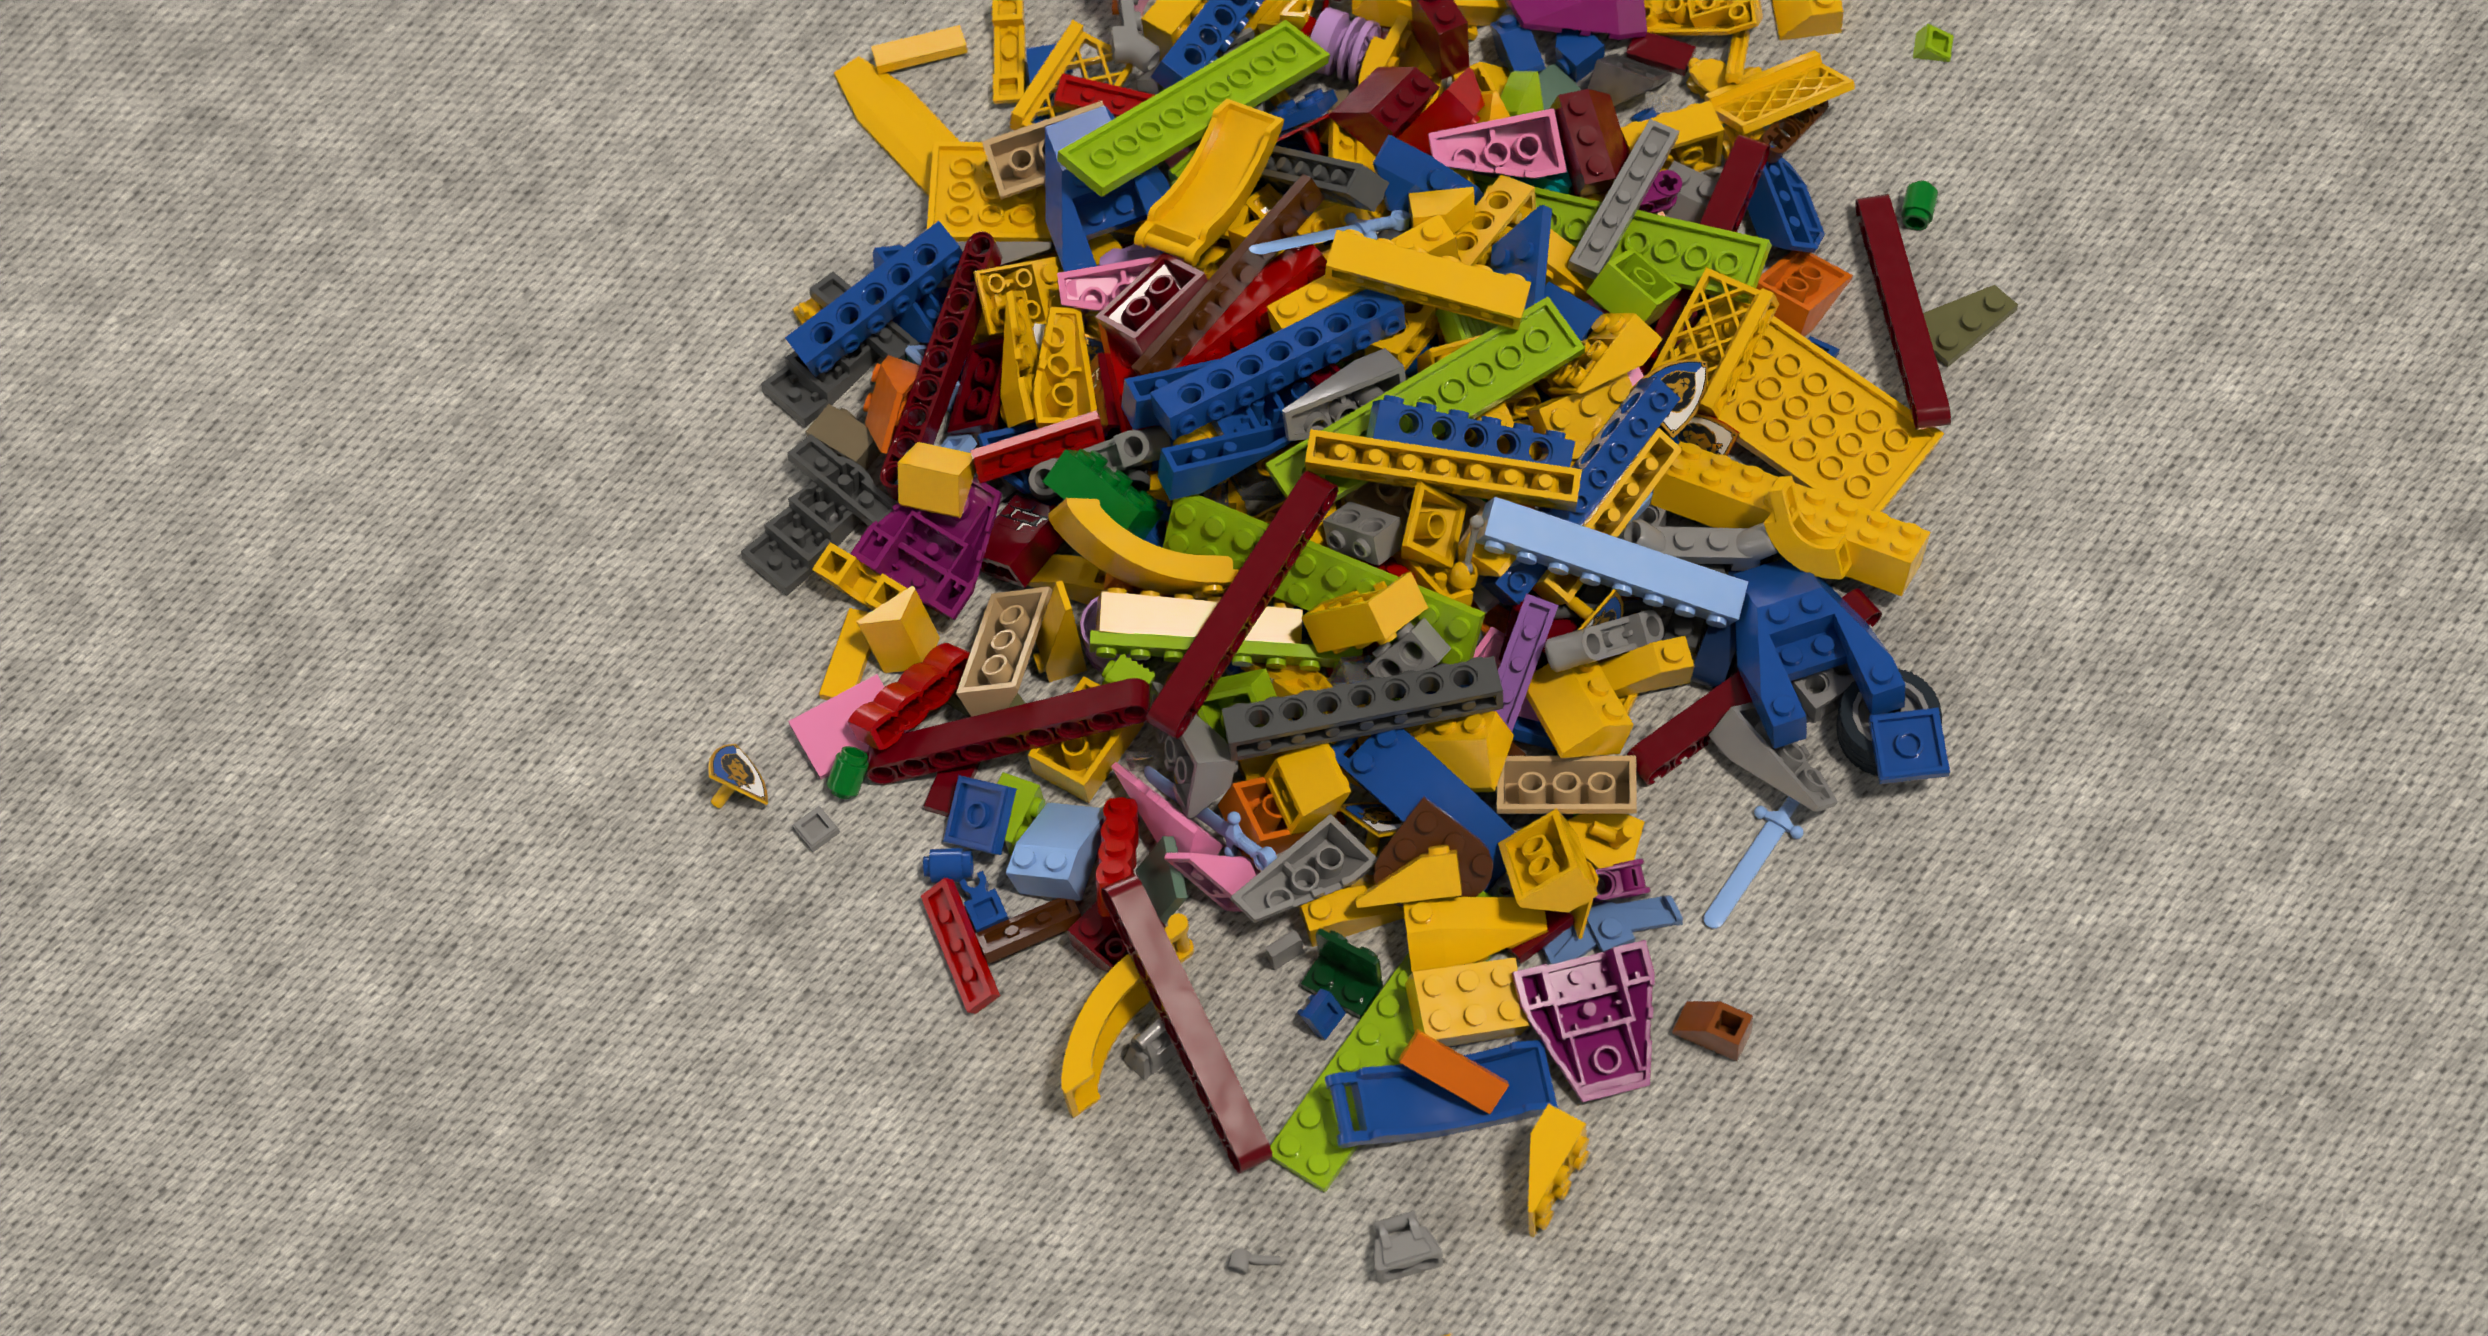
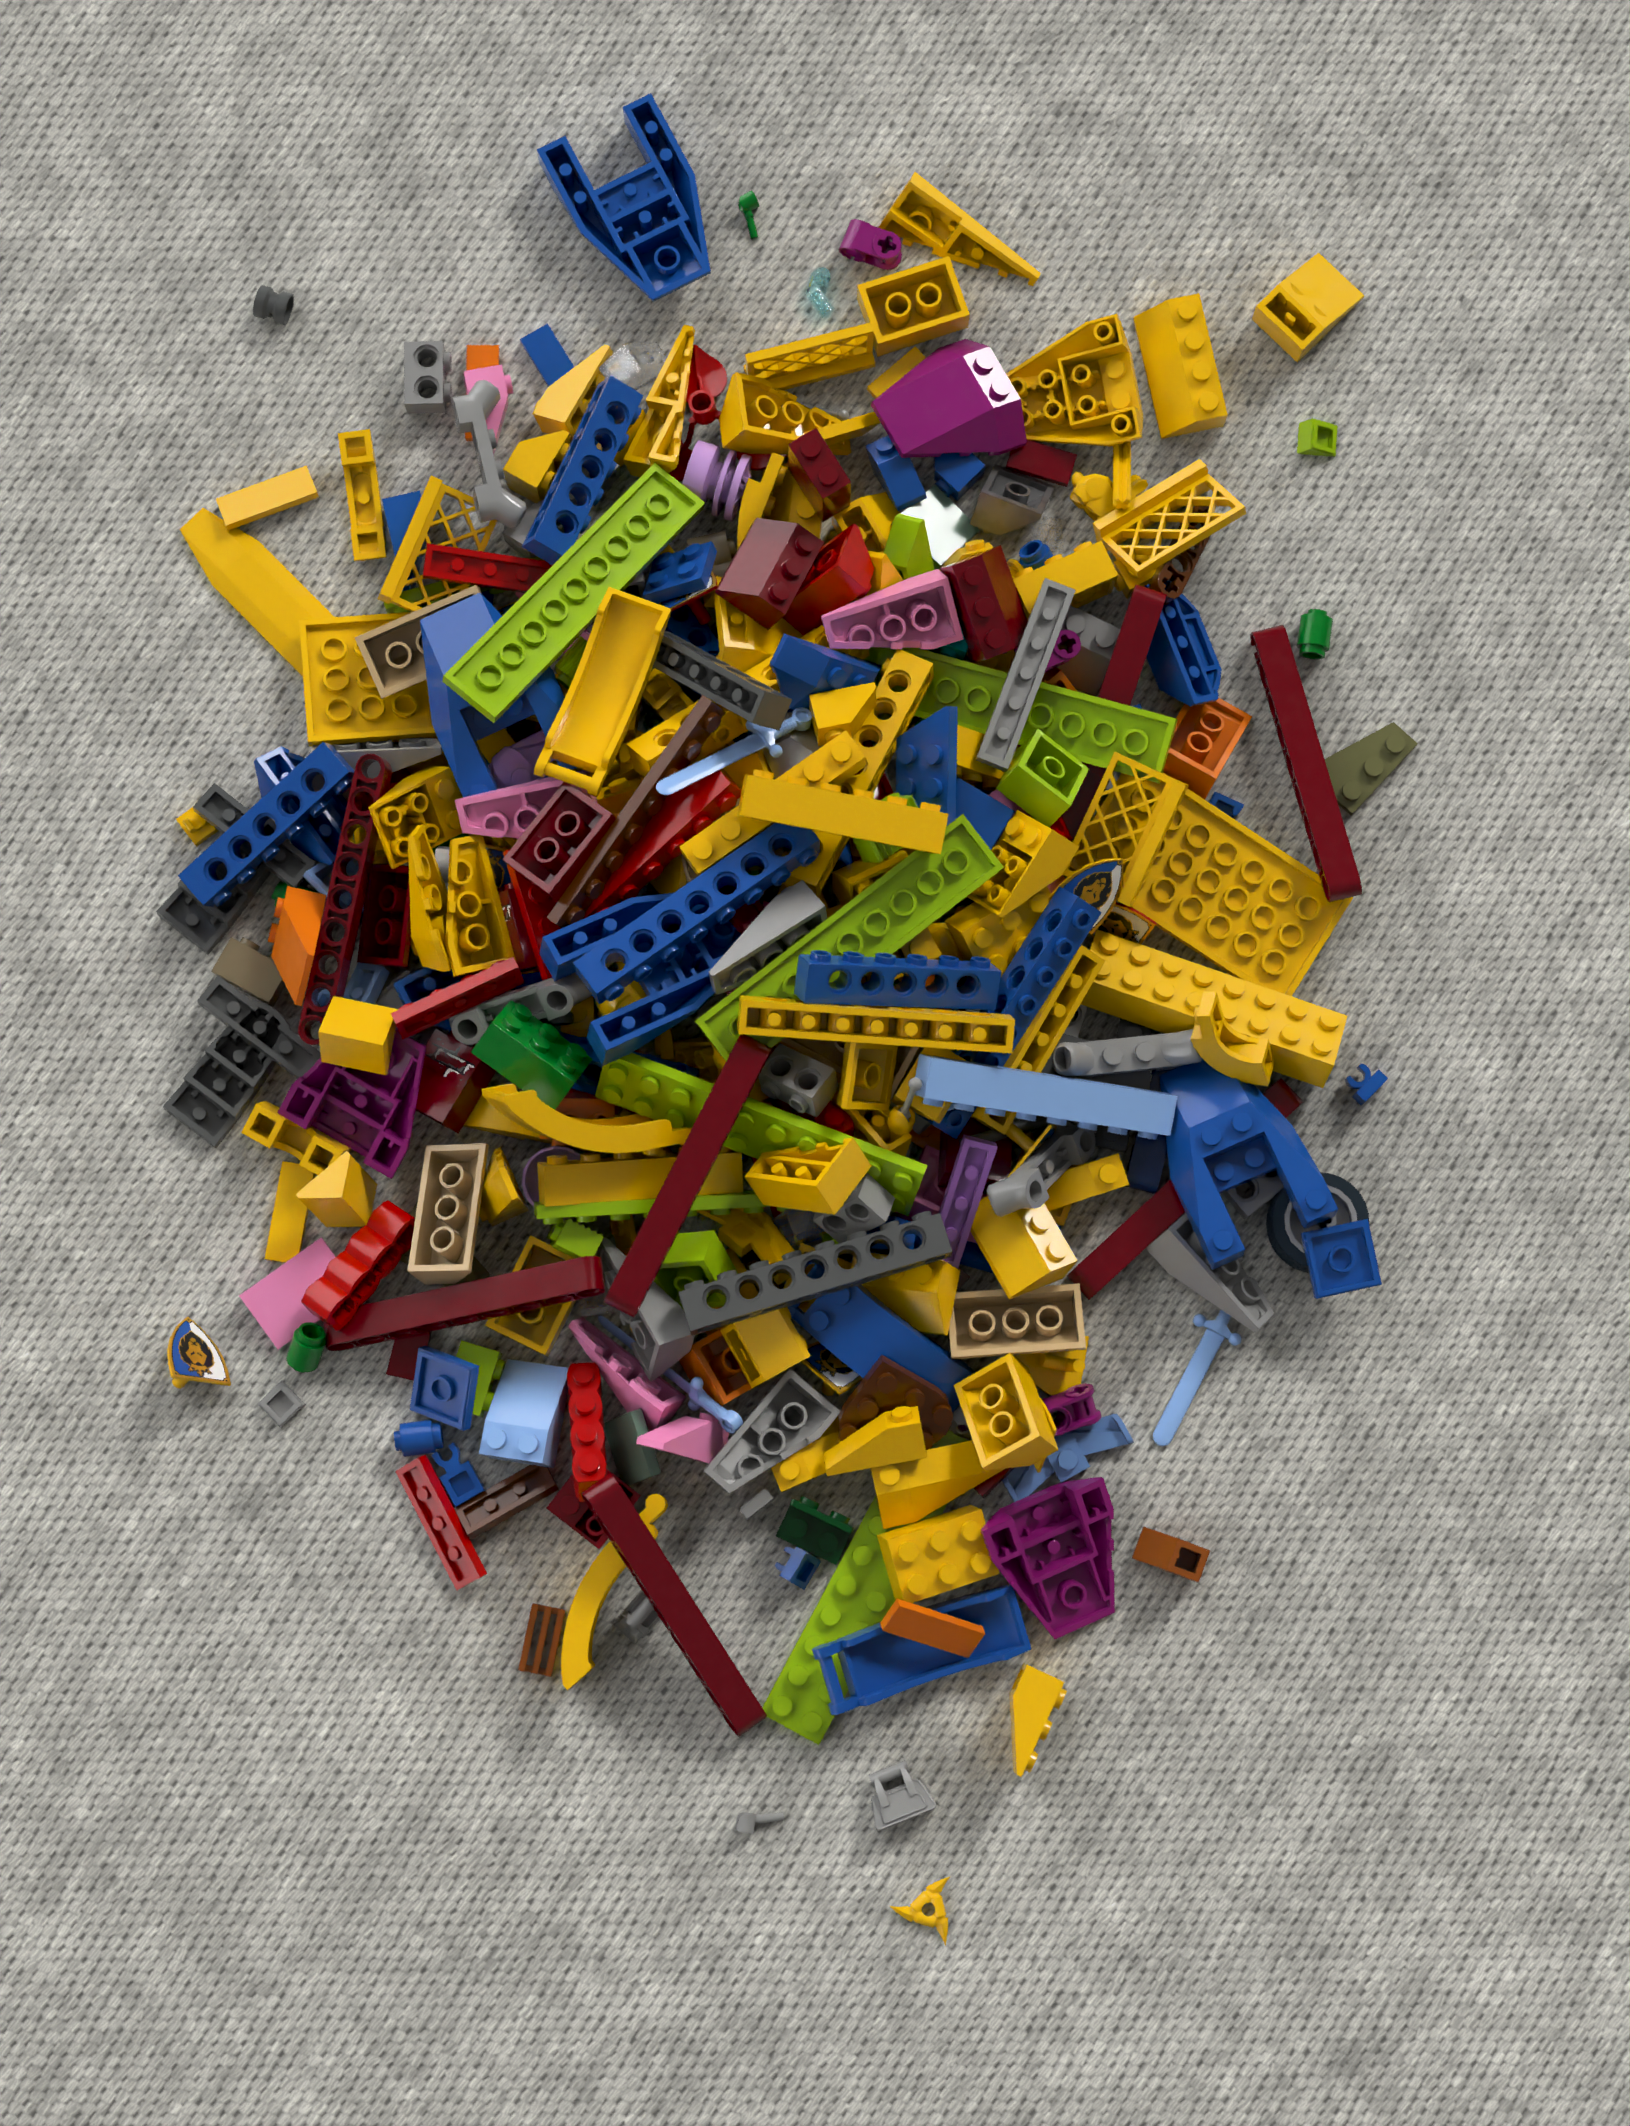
camera: 15 degrees left, 20 degrees up
(1057, 1041) = (536, 1669): none -> dark orange tile
(1950, 604) = (1368, 1085): none -> blue tile

